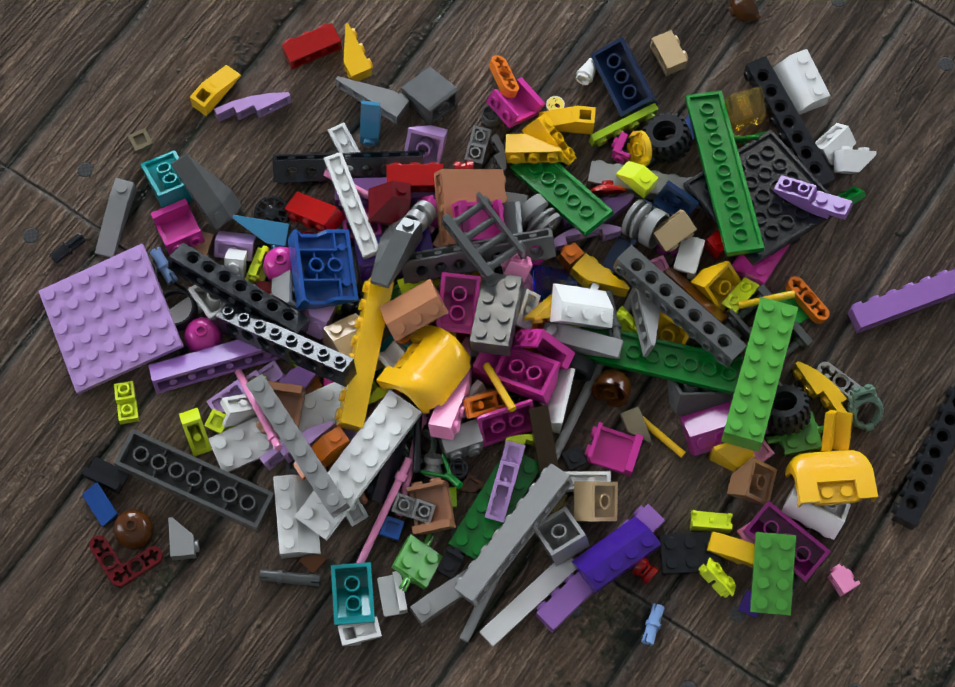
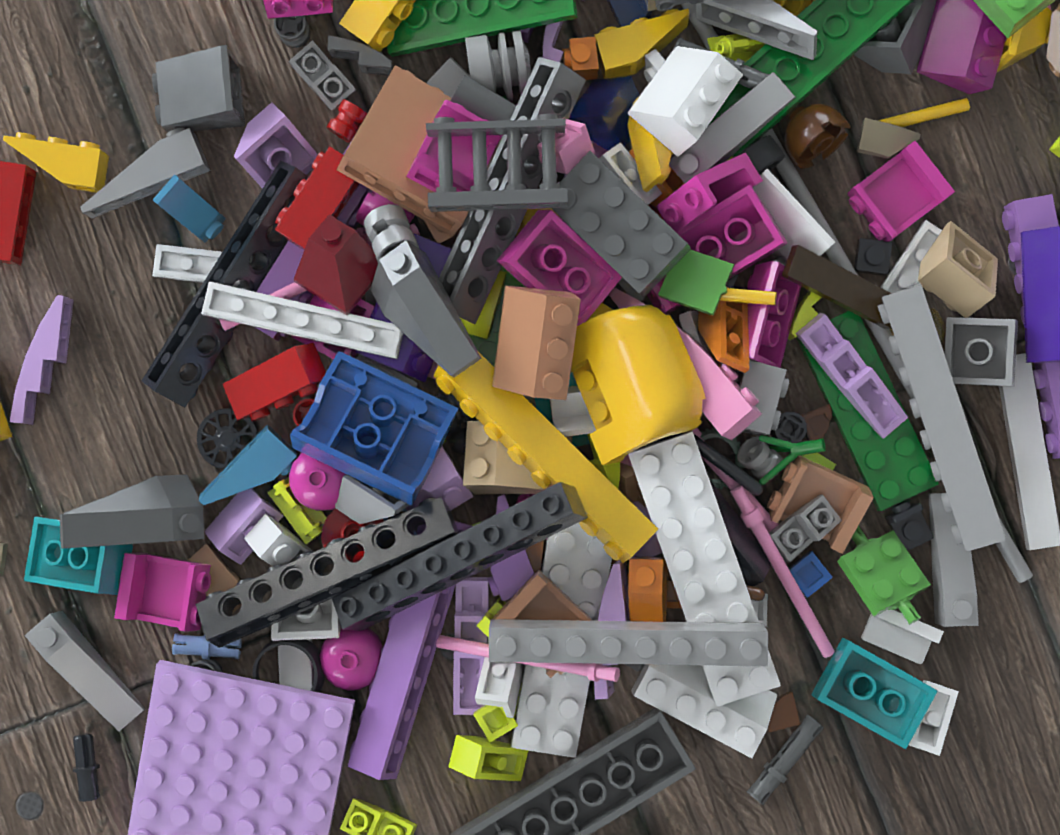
camera: 50 degrees left, 15 degrees up
(496, 369) = (697, 282): none -> bright green piece

